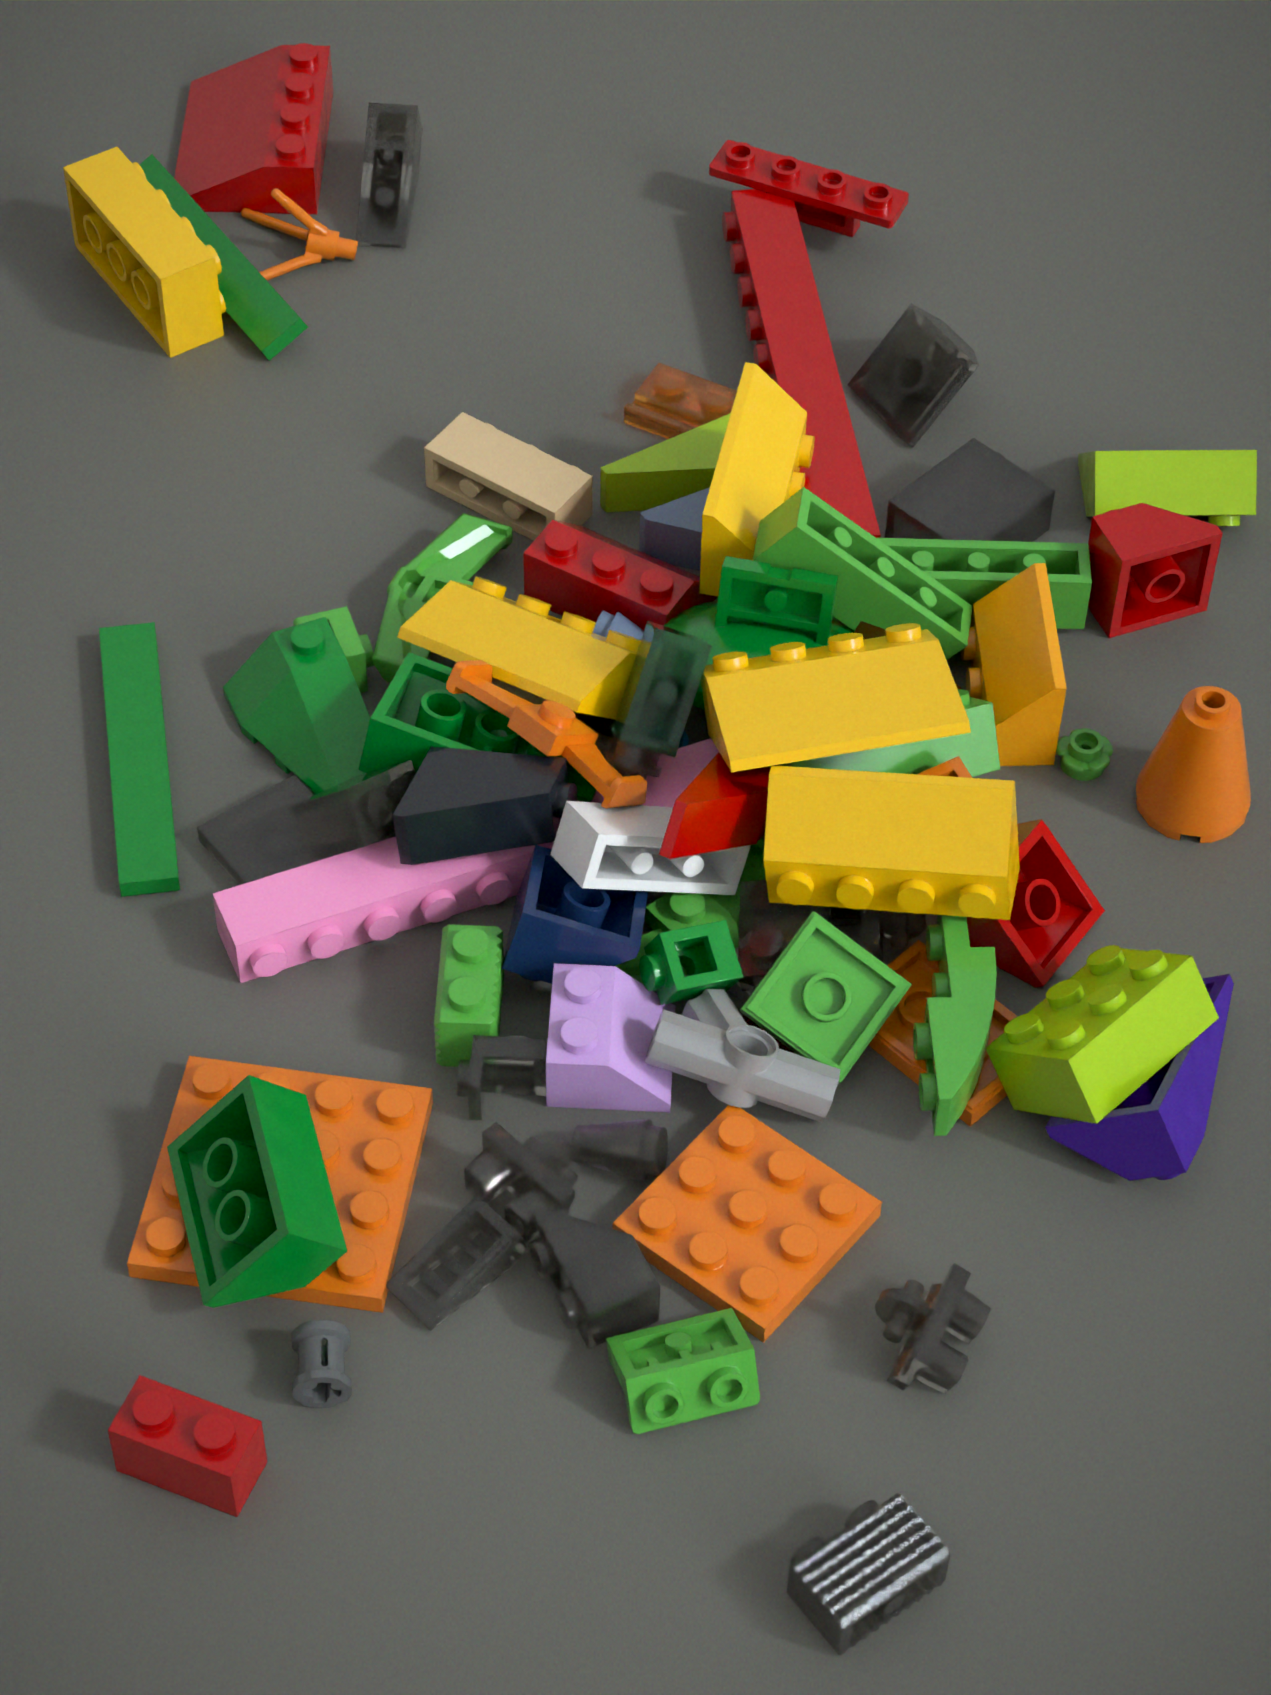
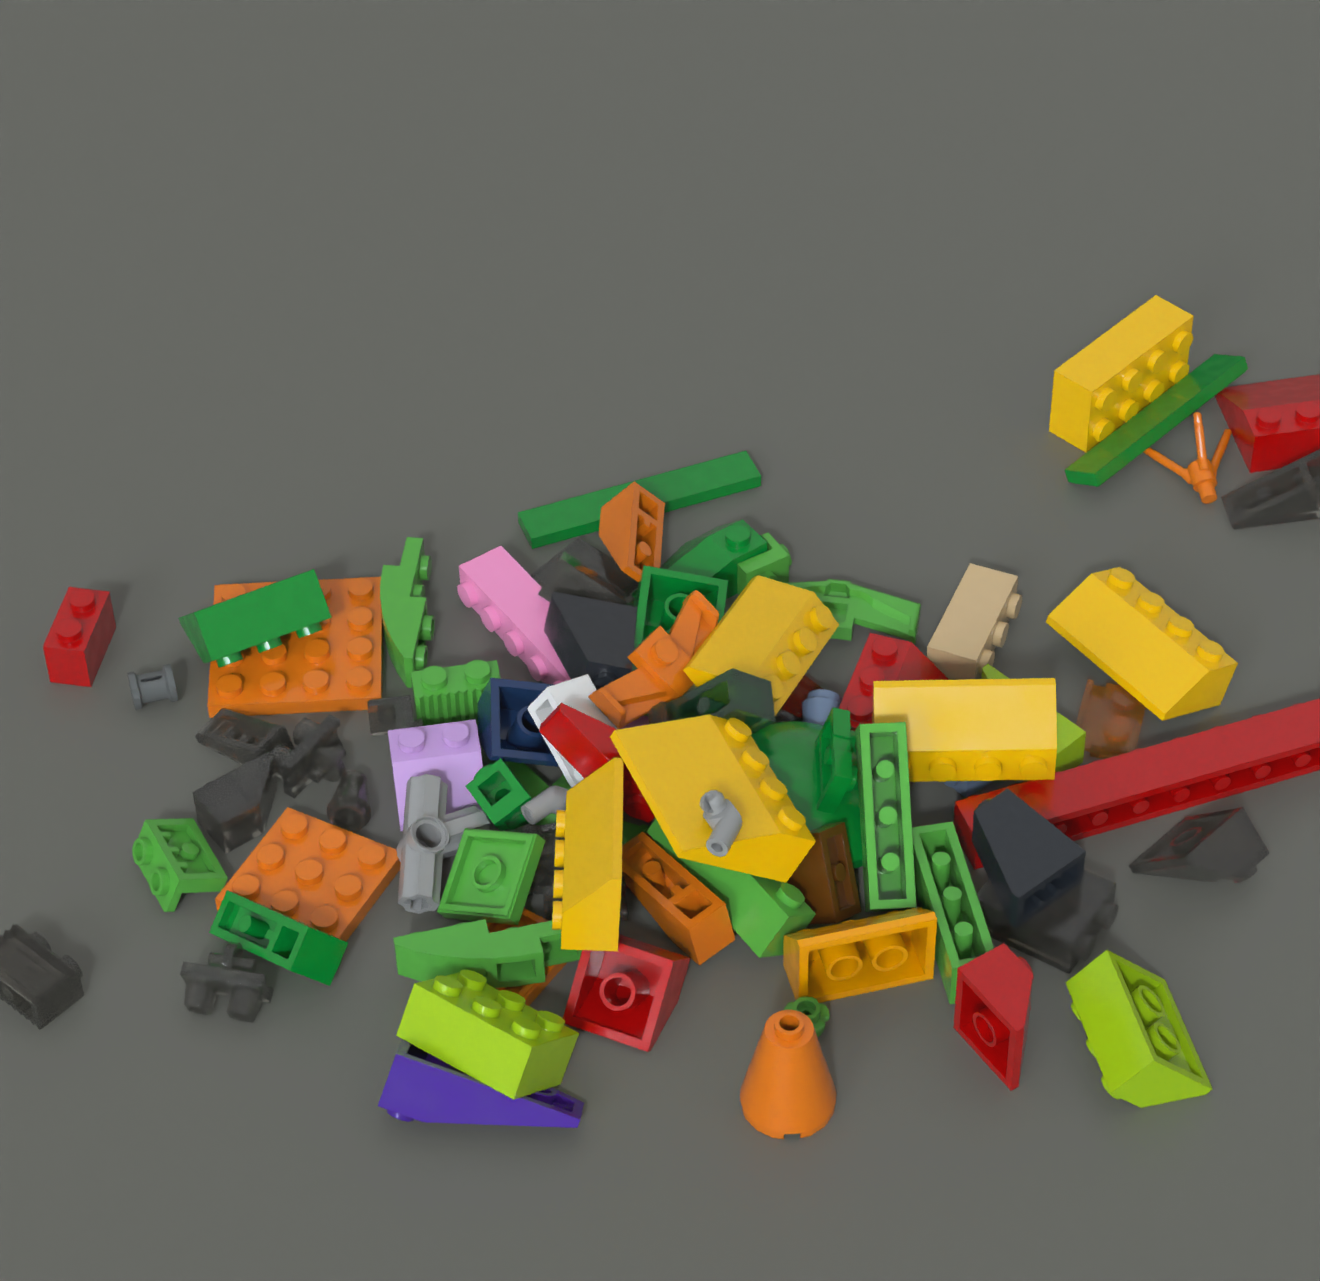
camera: 80 degrees right, 5 degrees down
(223, 756) = (633, 529): none -> orange slope
(297, 1036) = (405, 610): none -> bright green slope
(600, 339) = (1144, 644): none -> yellow slope
(726, 902) = (544, 804): none -> light grey arm
(867, 1256) = (279, 938): none -> green slope
(938, 670) = (723, 820): none -> light grey arm
(941, 489) = (1024, 856): none -> black slope

